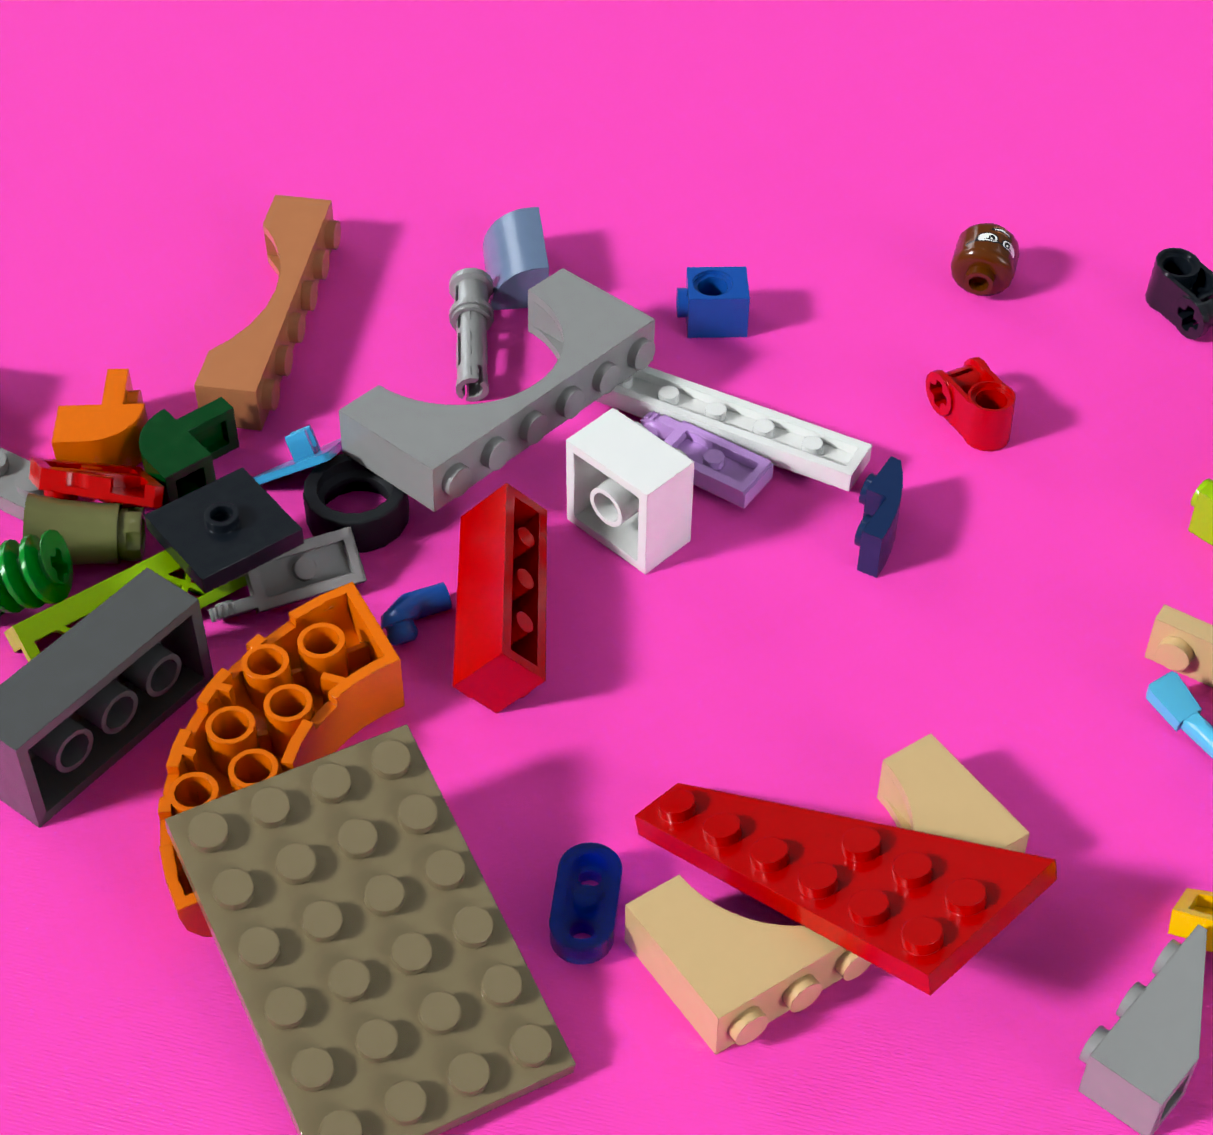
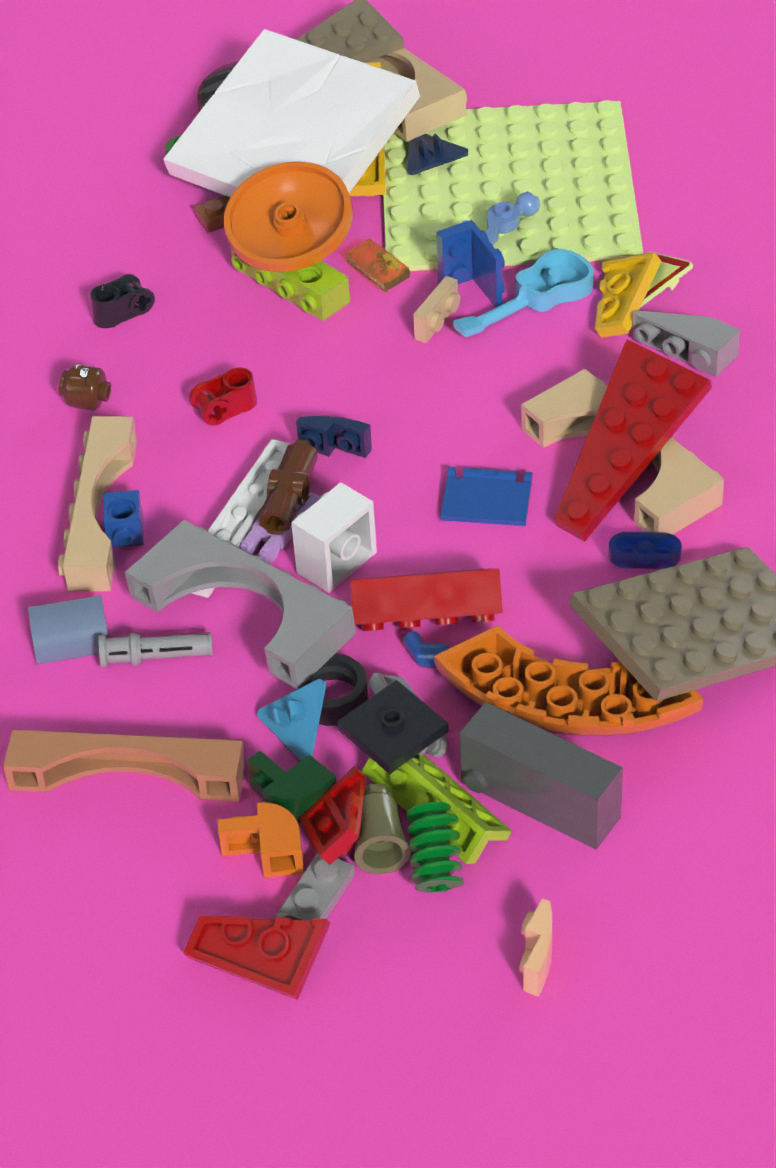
camera: 90 degrees left, 0 degrees up
(742, 442) = (288, 487): none -> reddish brown piece
(752, 708) = (486, 497): none -> blue piece
(845, 284) = (89, 552): none -> tan arch

